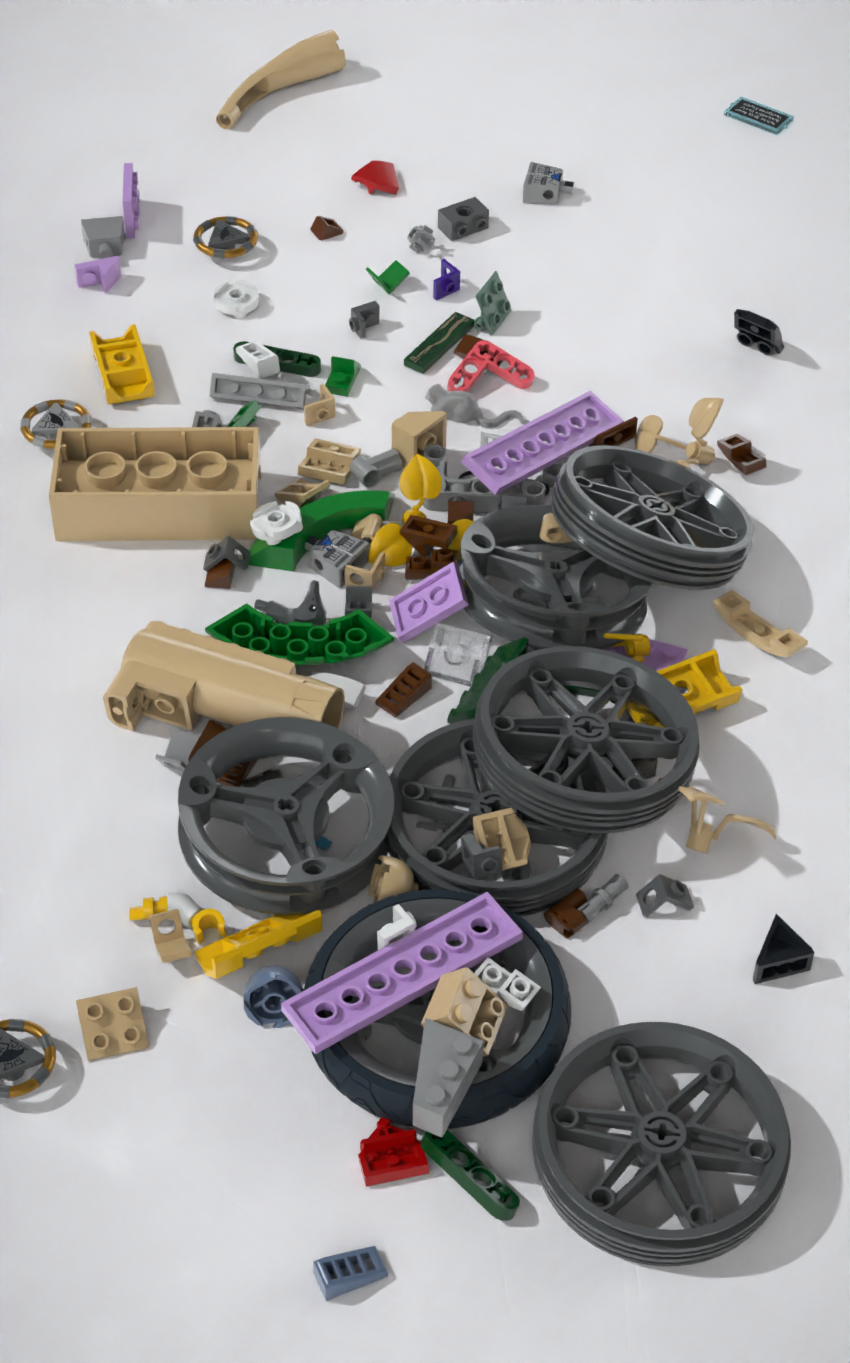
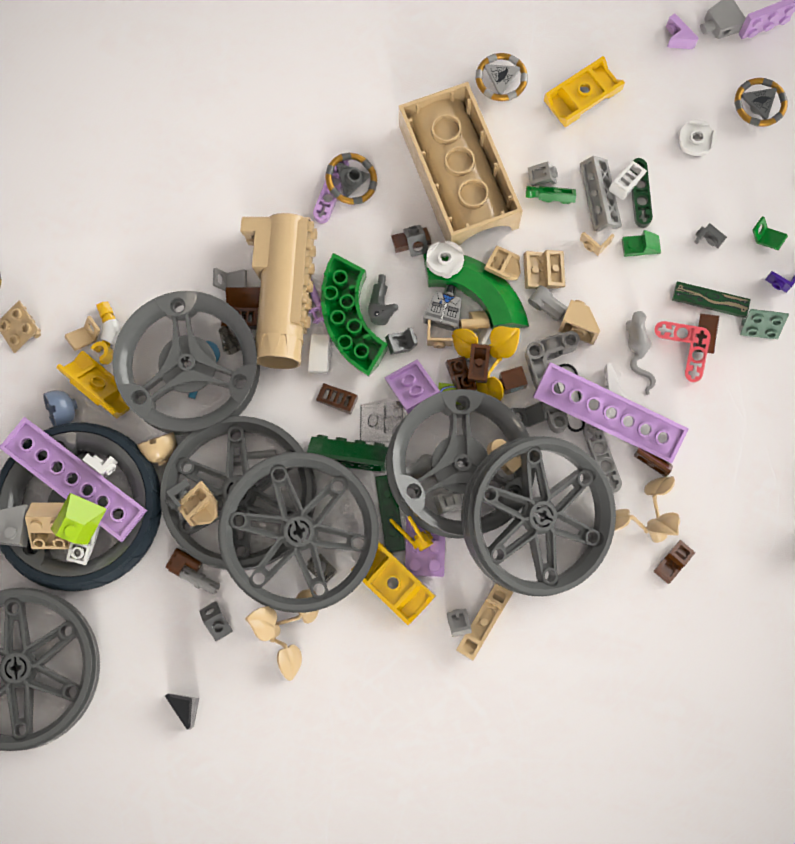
camera: 75 degrees right, 30 degrees up
(101, 627) = (329, 206): none -> lavender beam
(104, 598) = (351, 178): none -> dark grey piece
(479, 954) = (77, 520): none -> lime slope
(753, 642) = (459, 622): none -> light grey bracket

